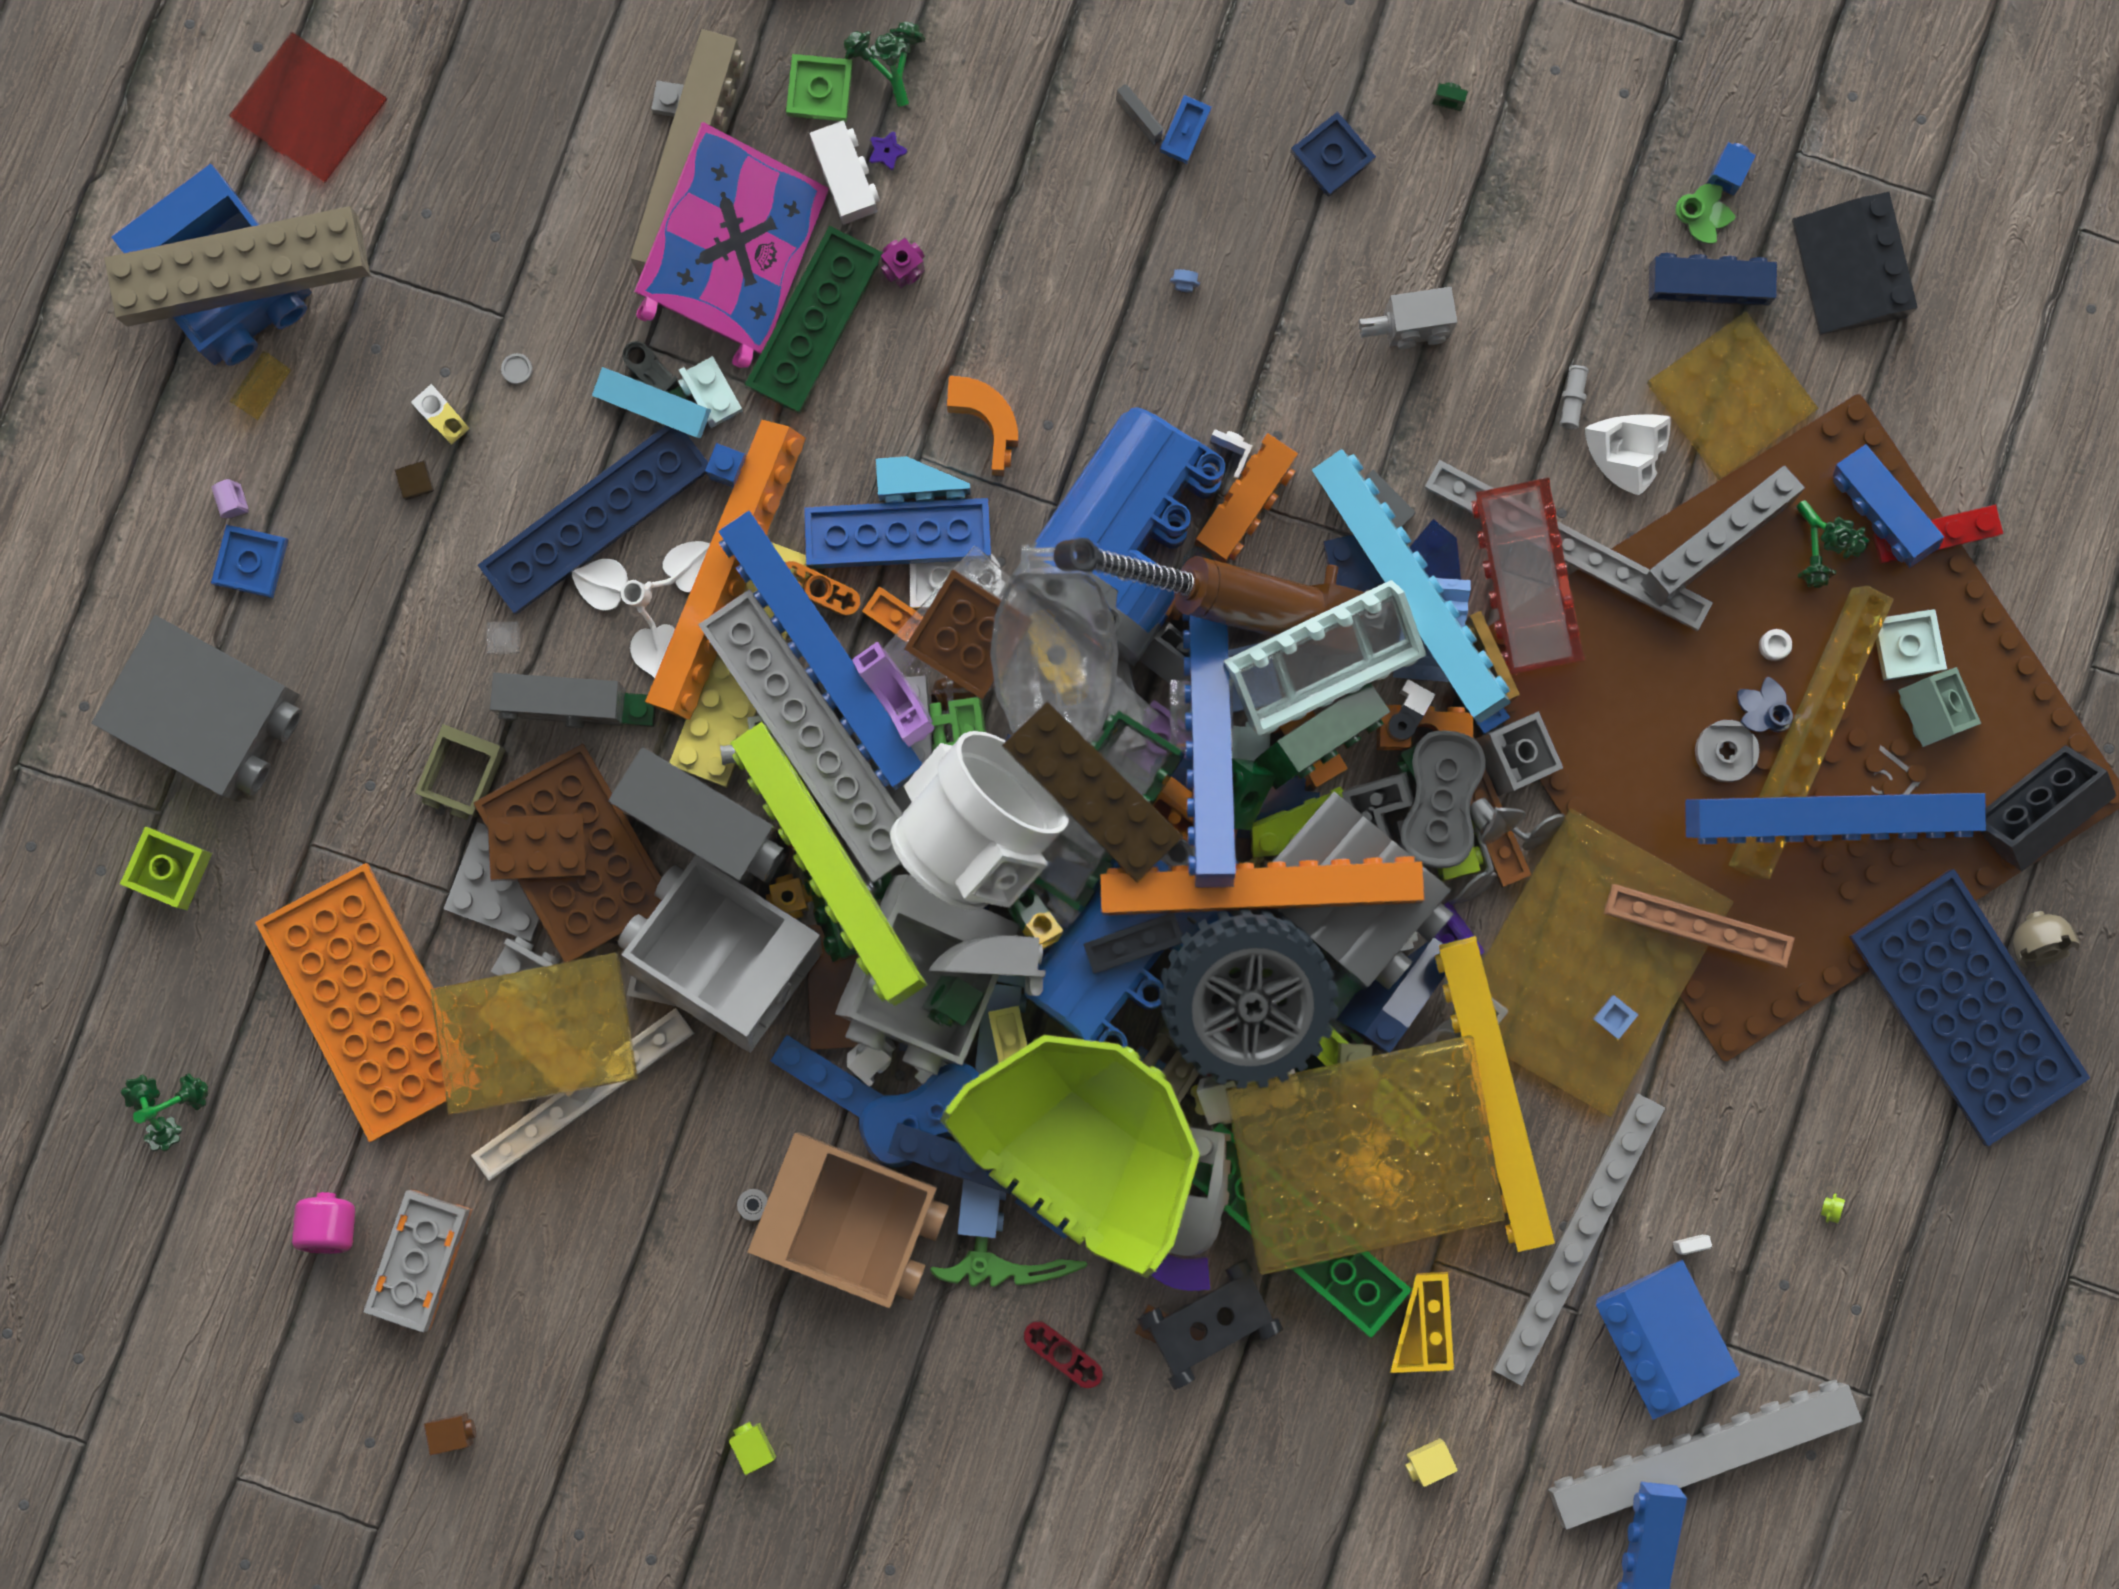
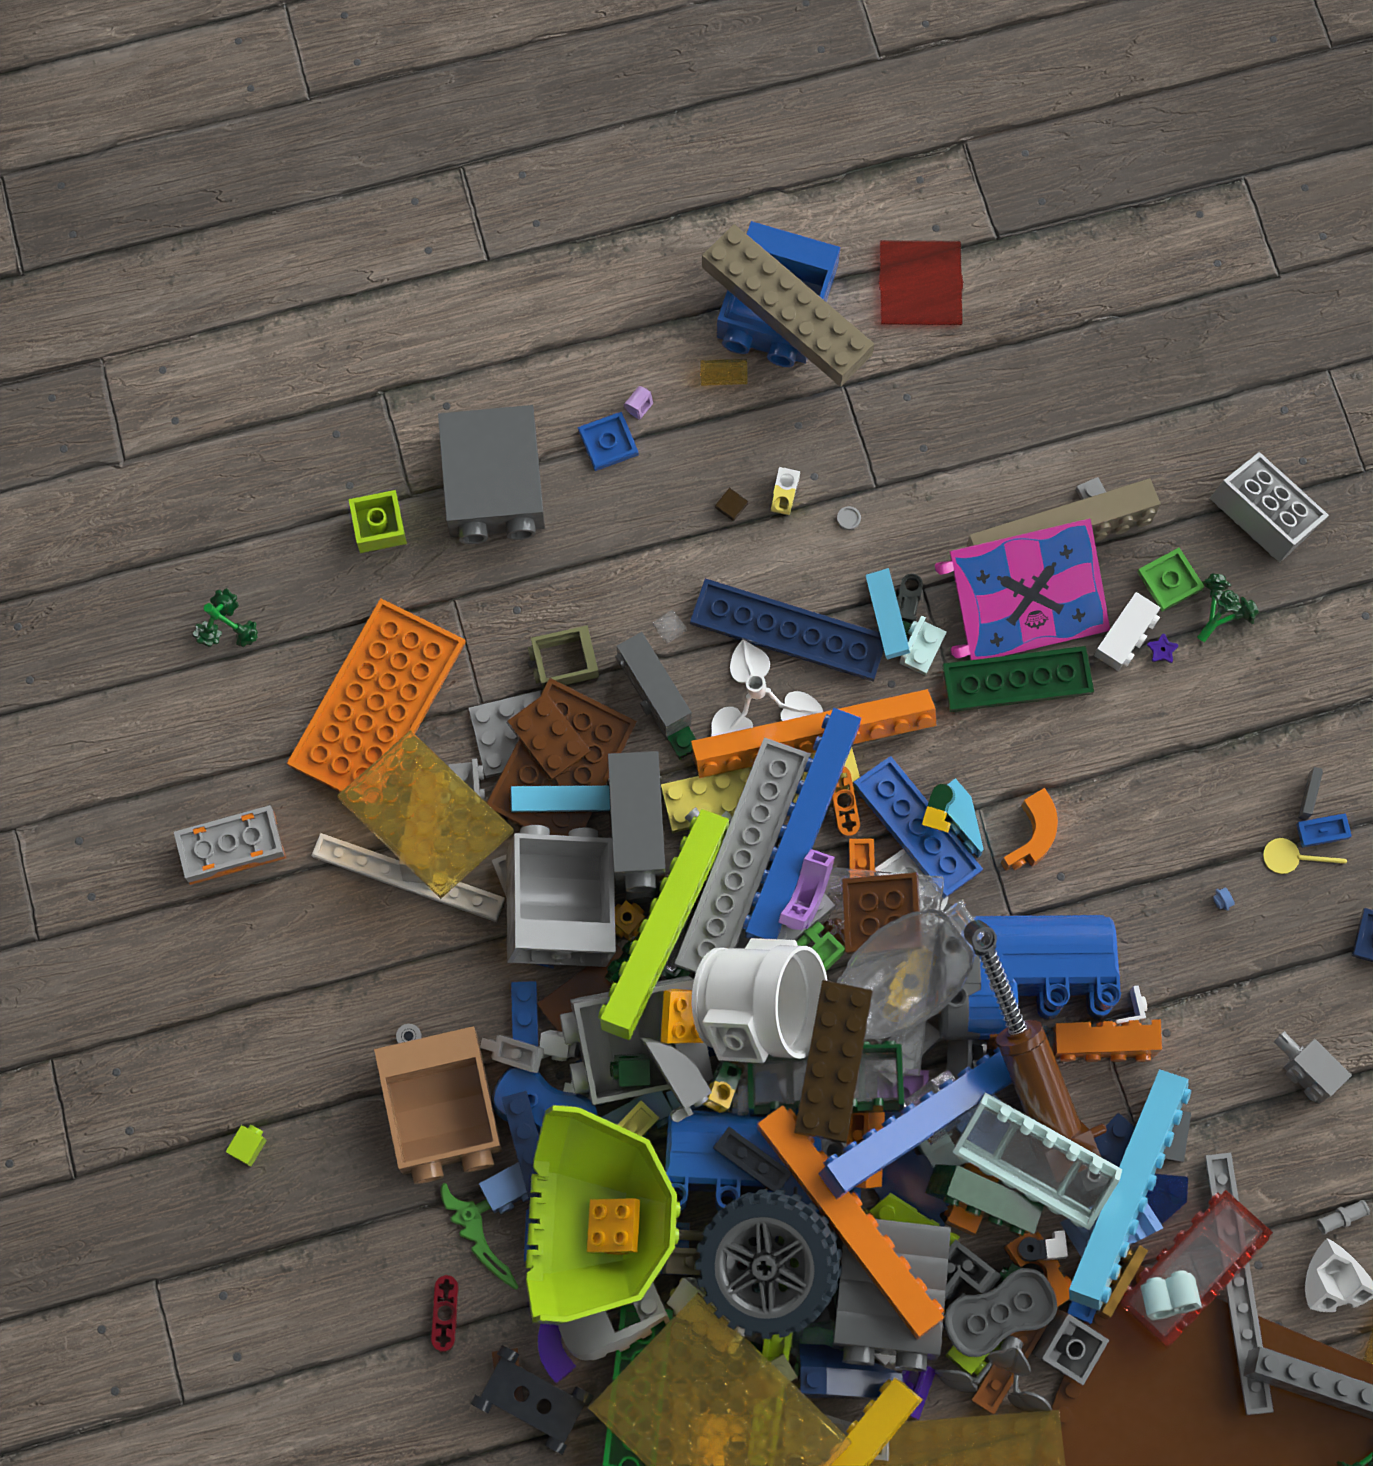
camera: 60 degrees right, 10 degrees down
(323, 1224) = (214, 770): dark pink head -> none
(450, 1433) = (129, 942): reddish brown brick -> none
(612, 880) = (560, 798): none -> medium azure tile
(725, 465) = (881, 686): blue brick -> none
(847, 1108) = (514, 1052): none -> light grey hinge
(888, 489) = (937, 808): none -> leg
(902, 272) = (1096, 716): magenta brick -> none
(937, 918) = (678, 1018): none -> light orange plate
(1099, 1127) = (613, 1226): none -> light orange plate
(1181, 188) = (1283, 856): none -> light yellow piece
(1250, 789) = (908, 1172): dark green brick -> none
(1541, 621) = (1170, 1295): none -> light aqua brick

